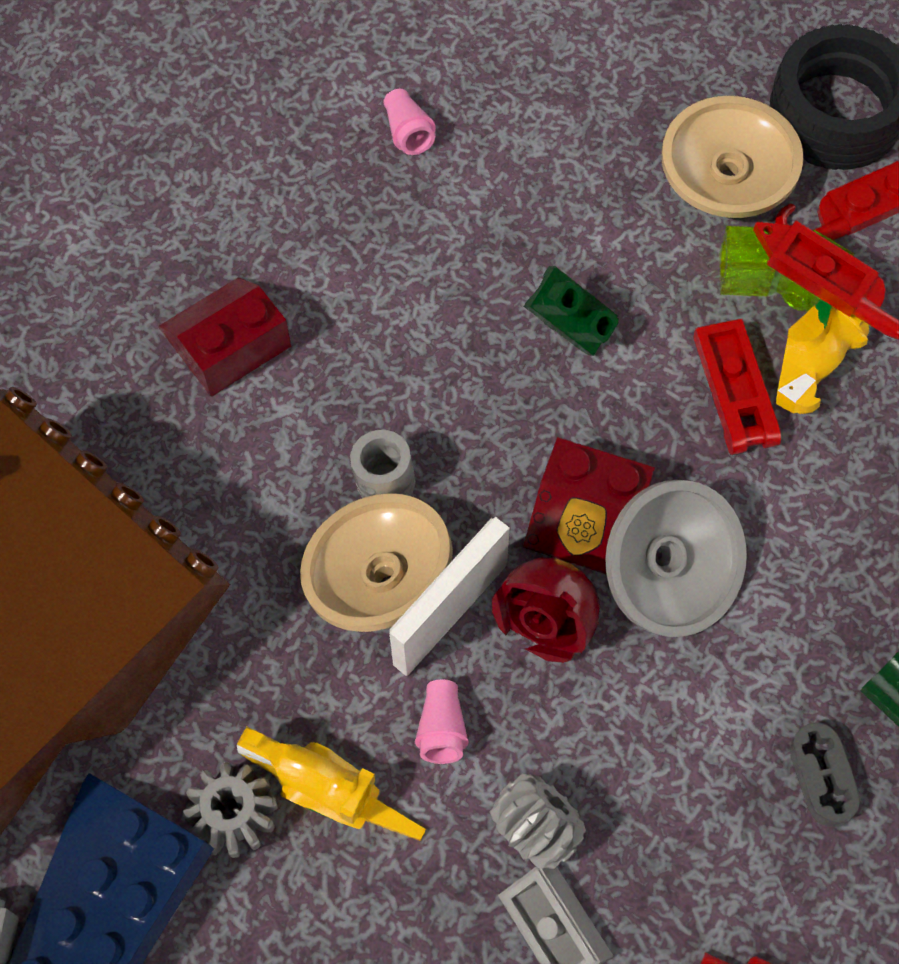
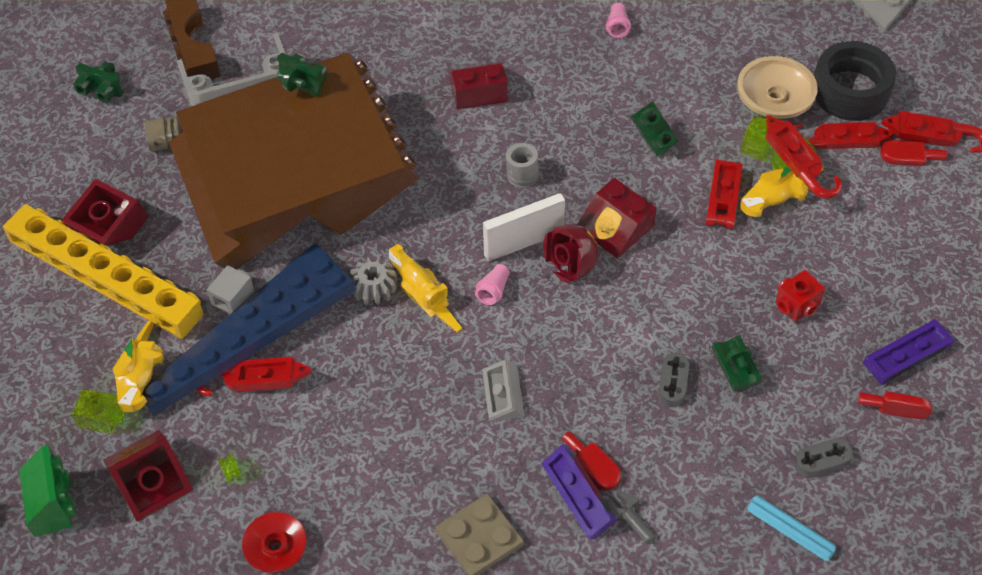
camera: 25 degrees right, 10 degrees down
(364, 545) = (494, 197): tan dish -> none
(537, 821) = (516, 338): light grey gear -> none
(699, 561) = (664, 249): light grey dish -> none

